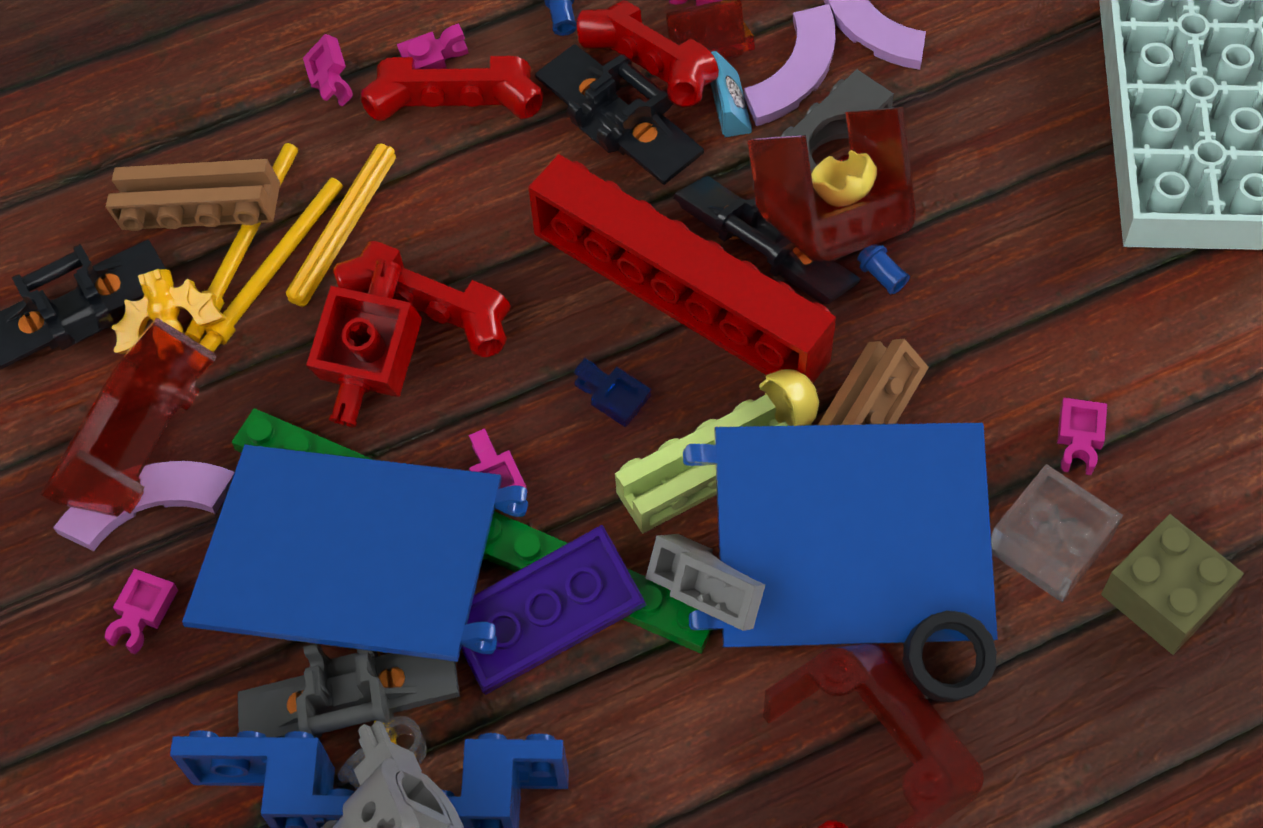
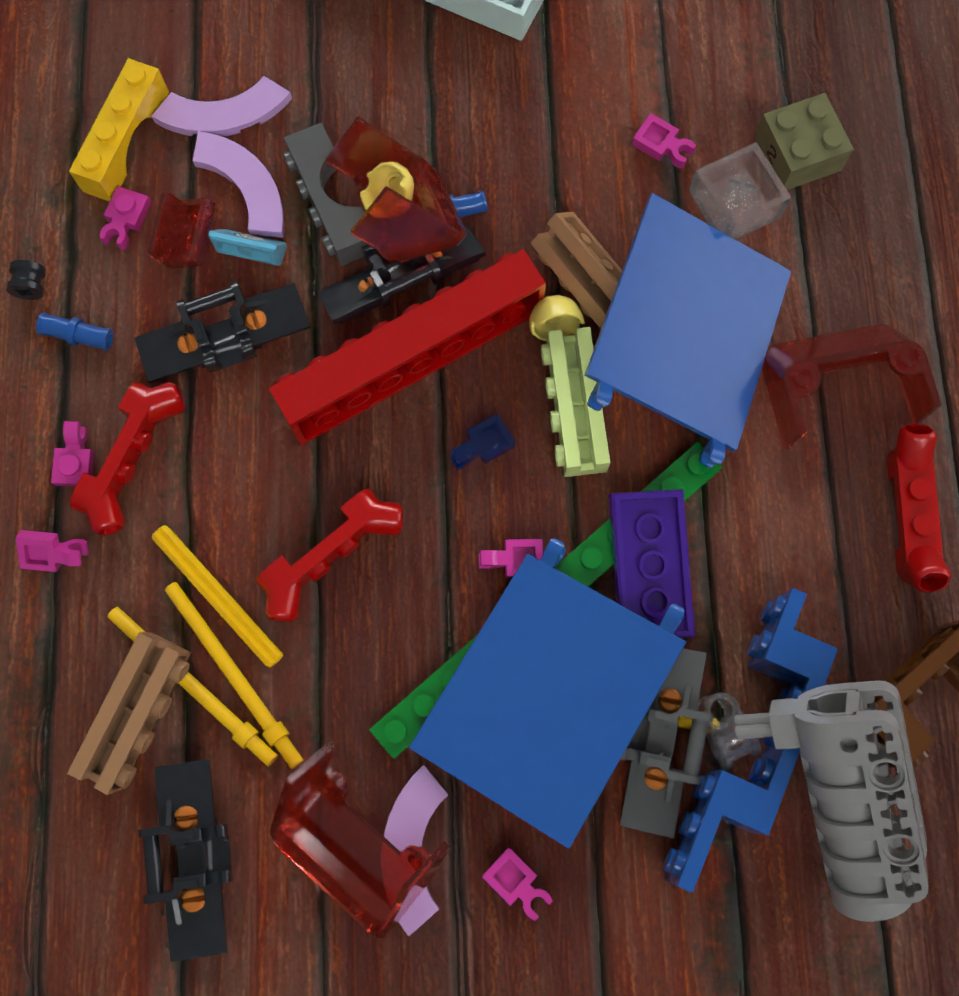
camera: 70 degrees left, 15 degrees up
(163, 302) = (236, 775): yellow animal -> none
(388, 334) = (383, 612): red brick -> none
(682, 66) = (218, 259): red plate -> none
(704, 581) = (690, 440): light grey slope -> none
(983, 646) = (819, 293): black tyre -> none

